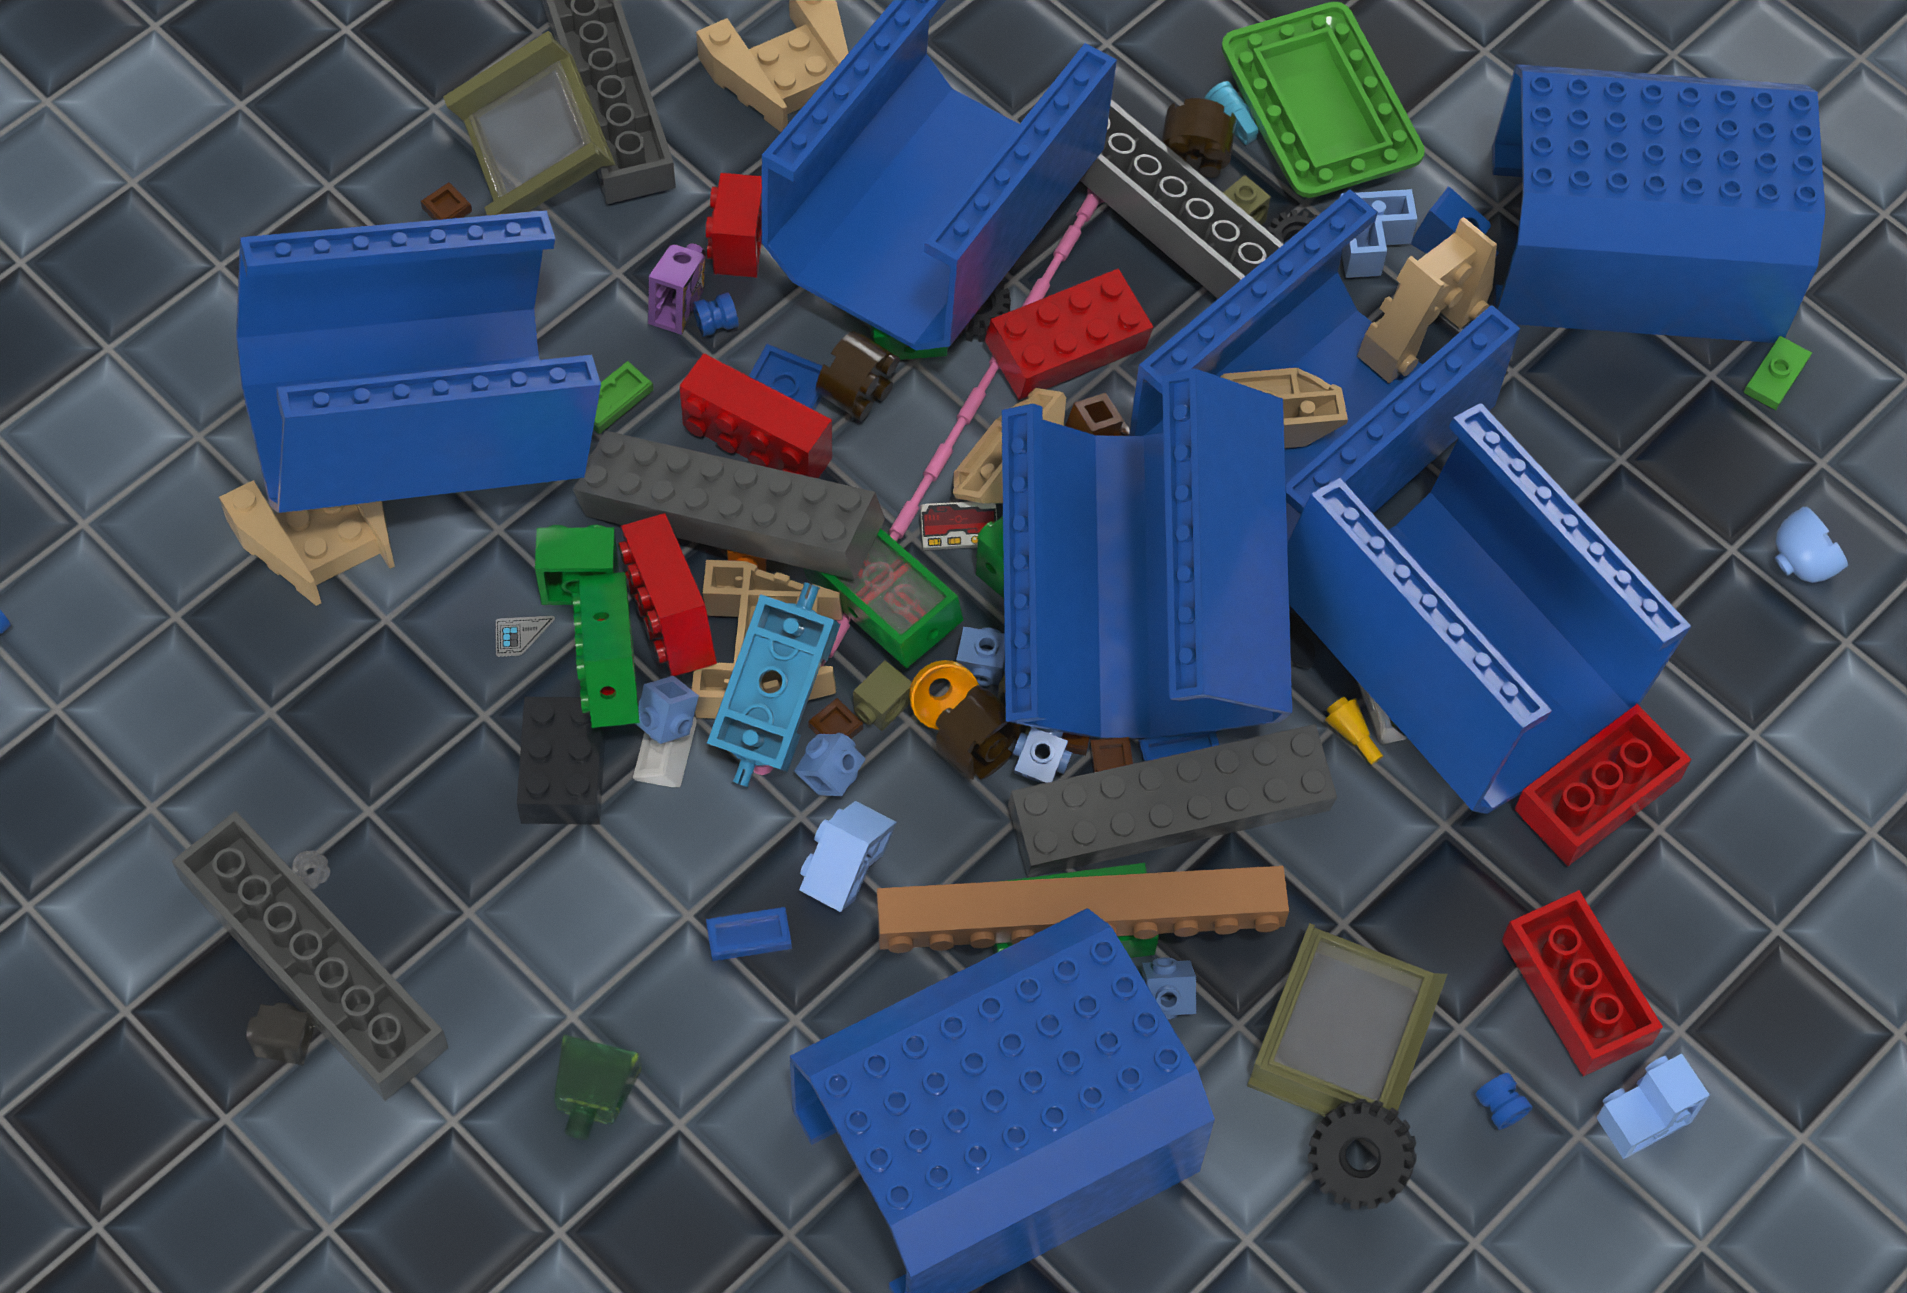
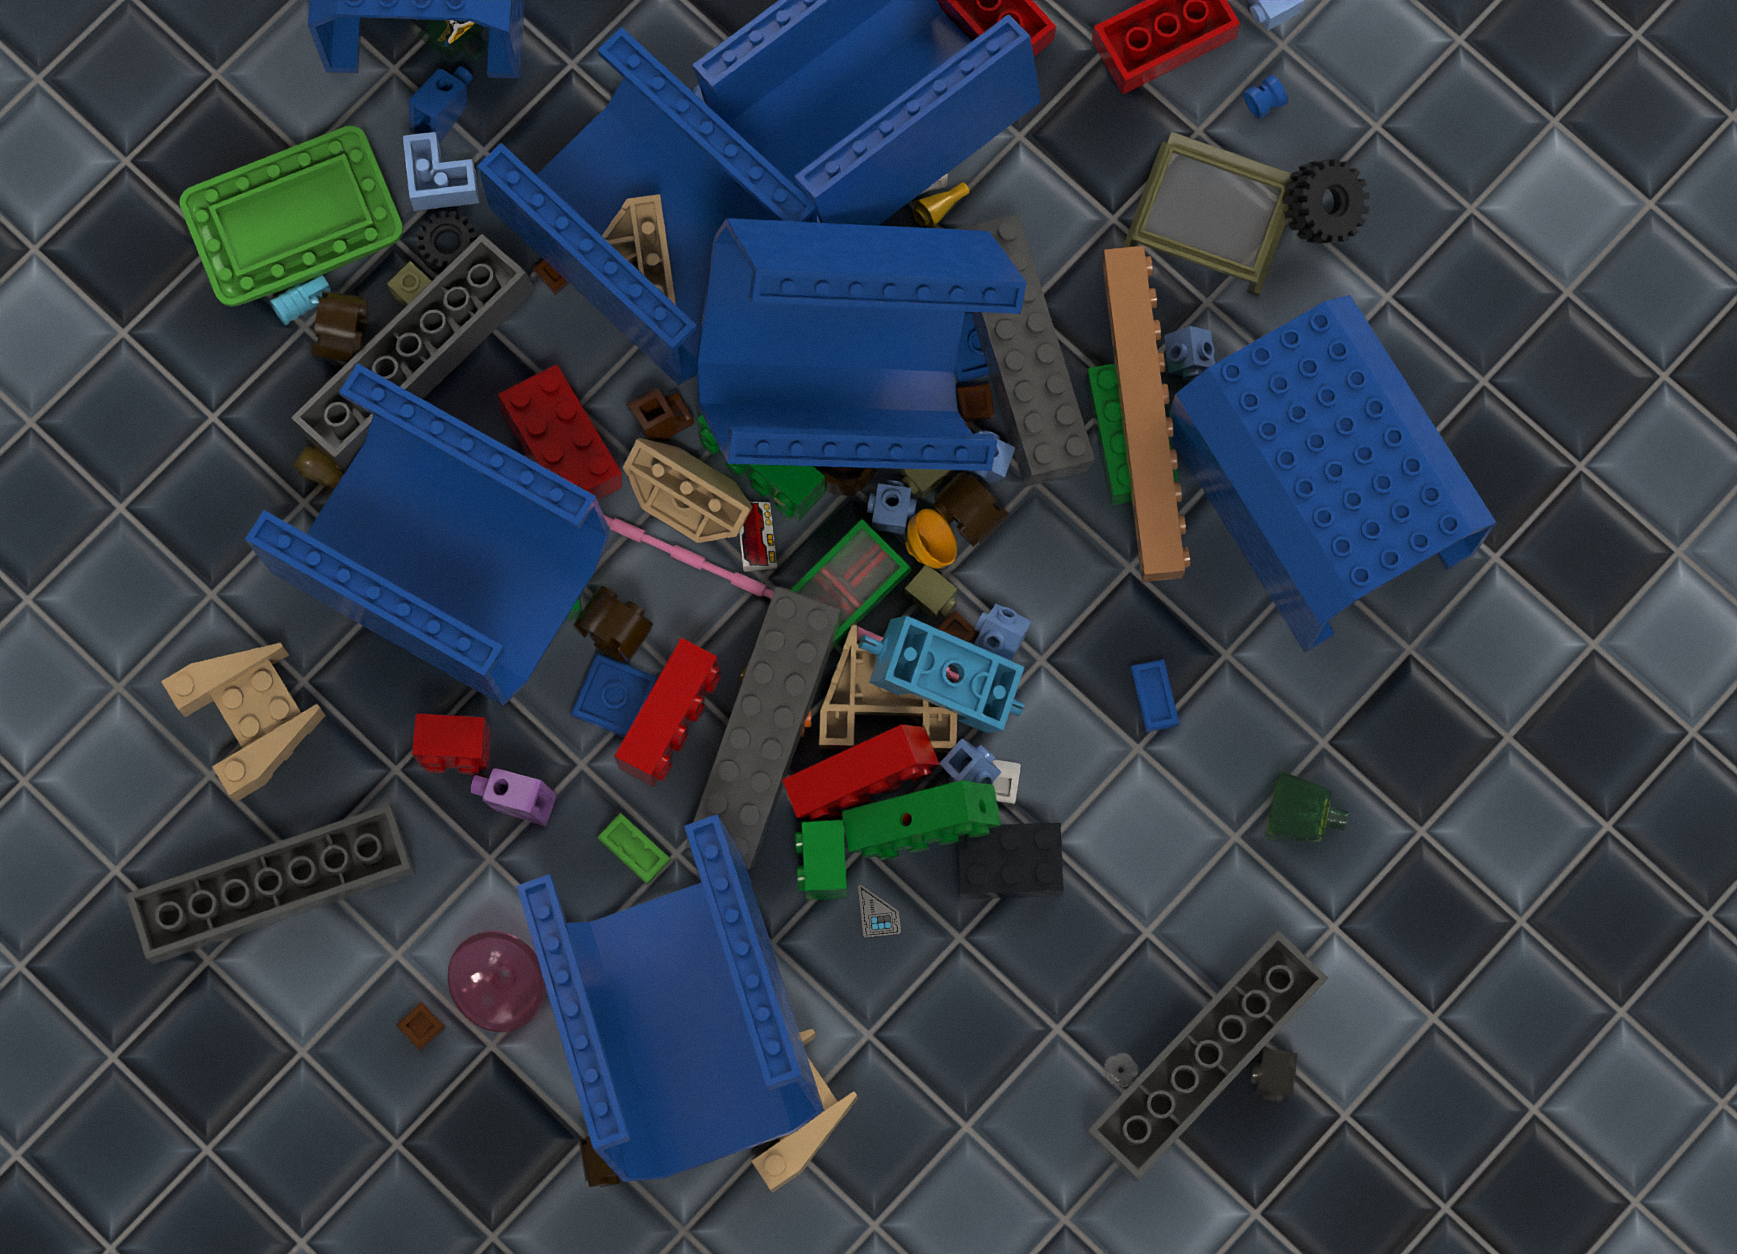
camera: 90 degrees left, 15 degrees up
(531, 125) = (352, 942): piece -> none
(715, 314) = (542, 760): blue wheel -> none
(844, 853) = (1087, 612): light blue brick -> none
(1447, 280) = (537, 124): tan wedge -> none

